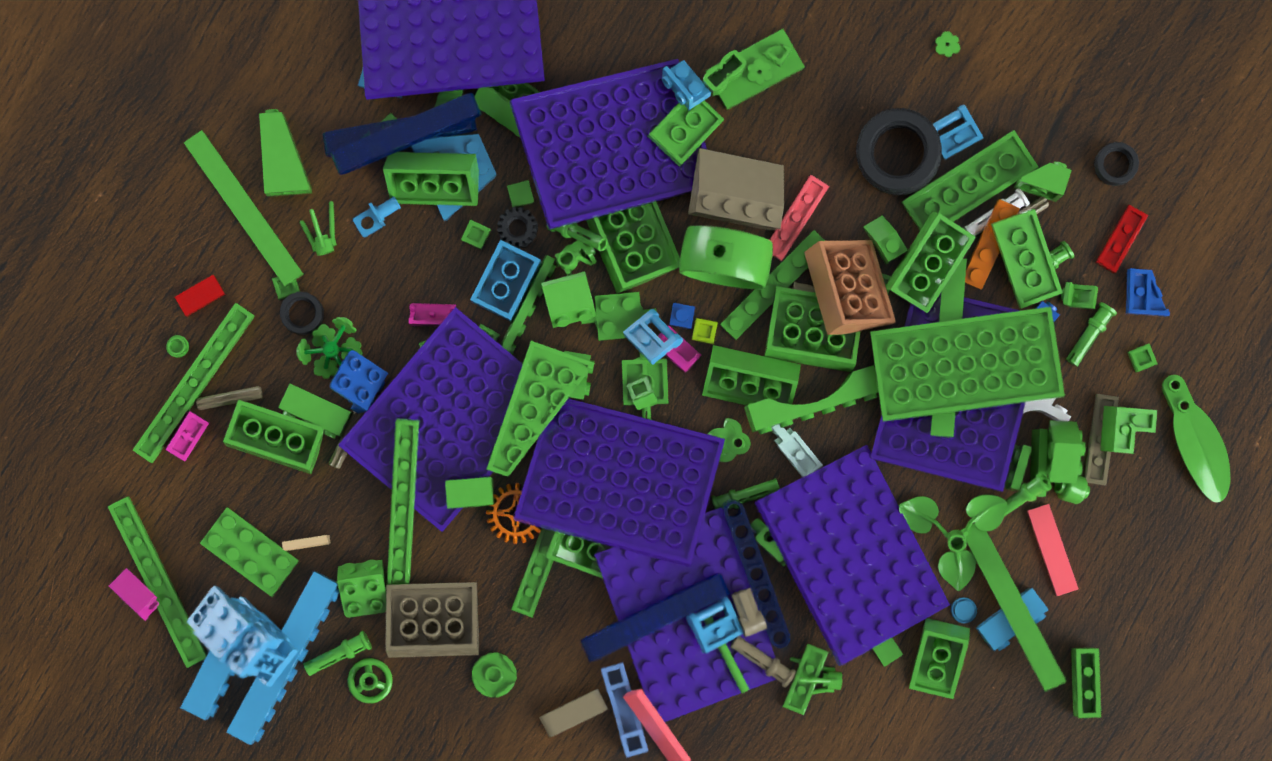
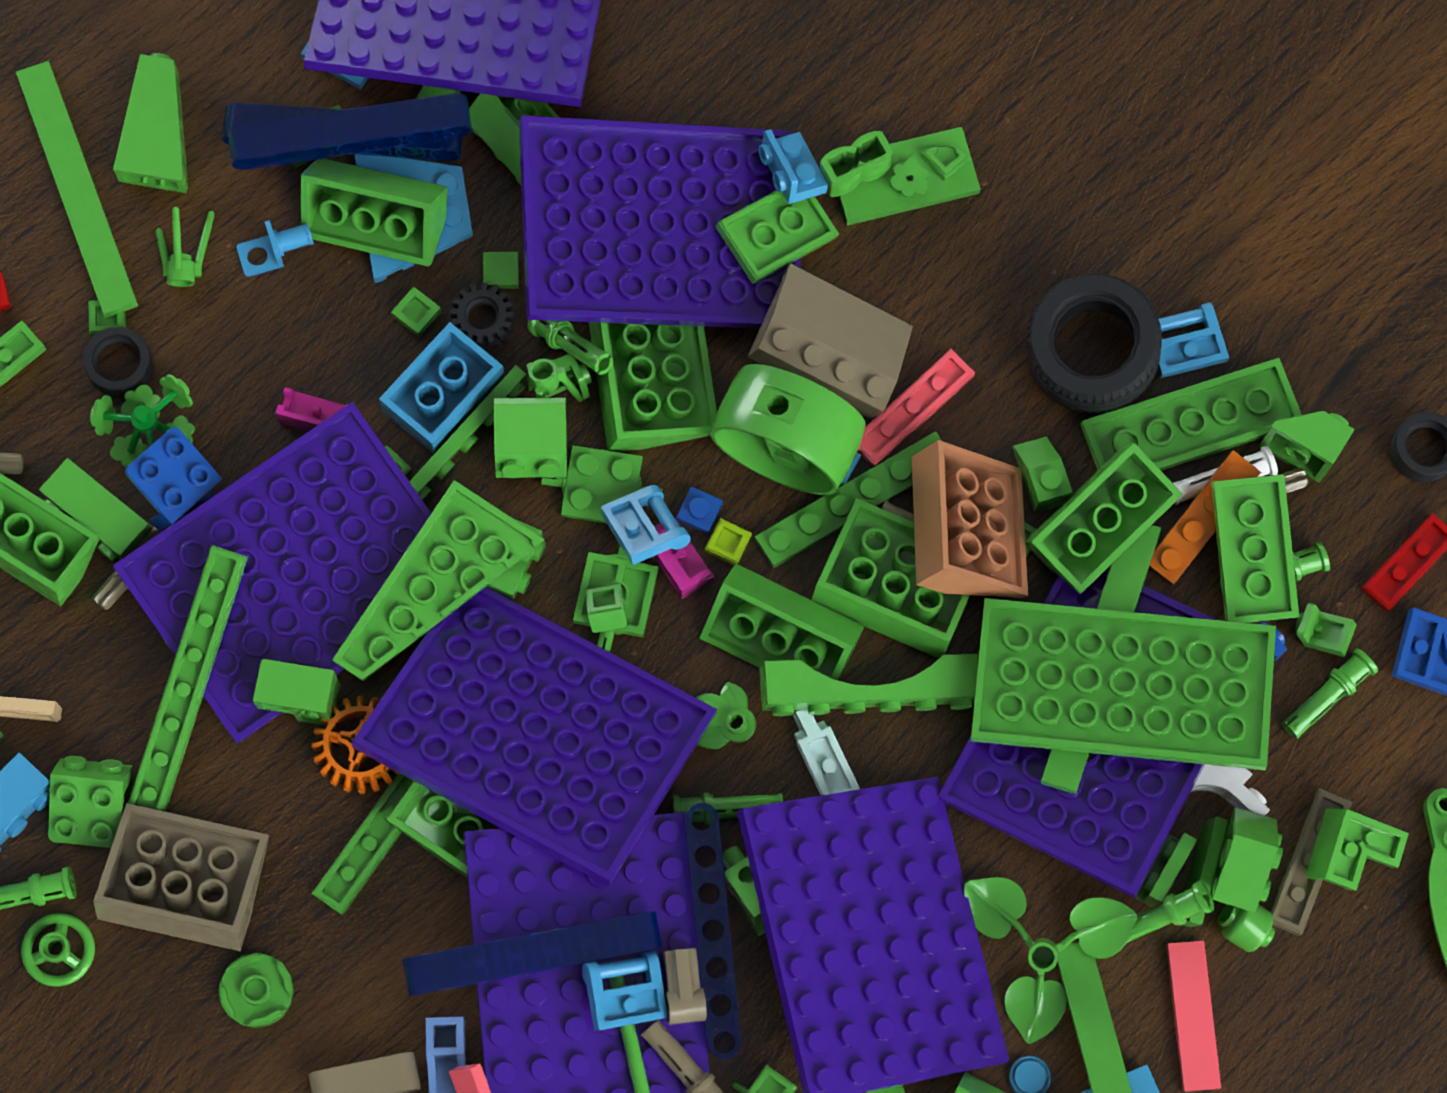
camera: 10 degrees right, 10 degrees down
(947, 38) = (1207, 202): bright green plant -> none
(1142, 358) = (1402, 751): bright green tile -> none

